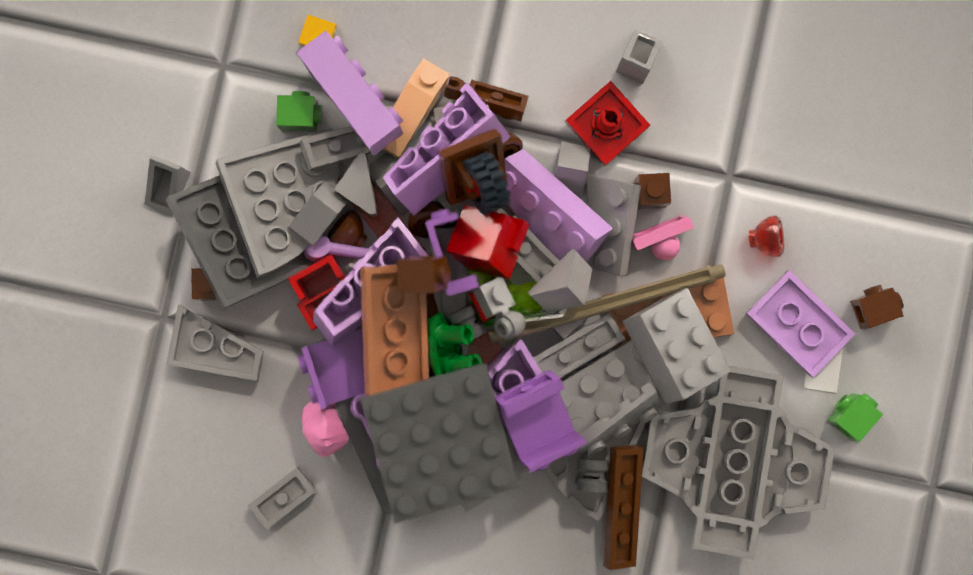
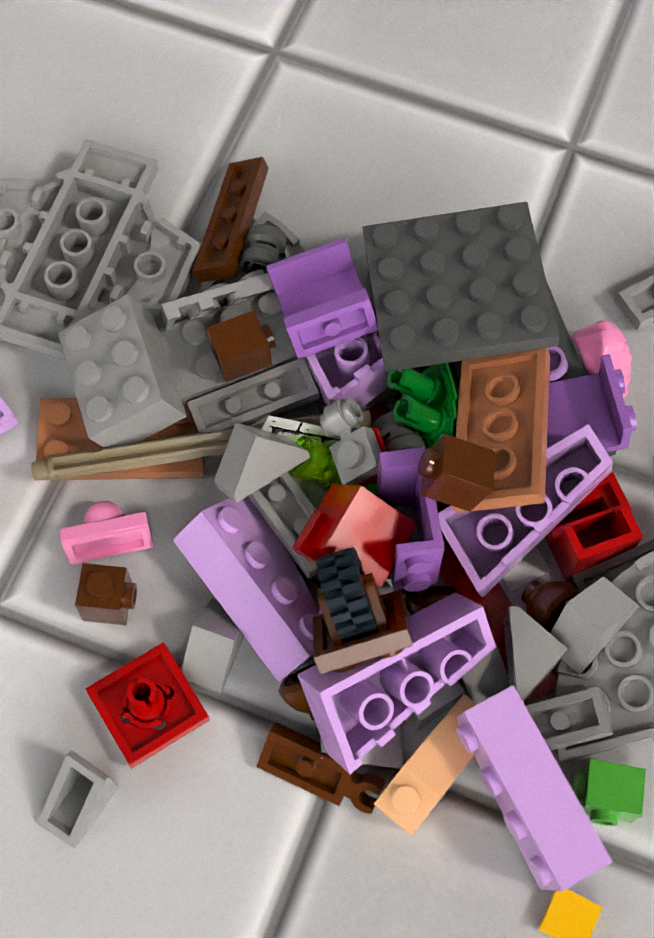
camera: 170 degrees left, 20 degrees down
(324, 246) = (554, 573): lavender bar -> none
(593, 379) = (241, 345): none -> reddish brown brick
(617, 205) = (161, 576): light grey wing -> none

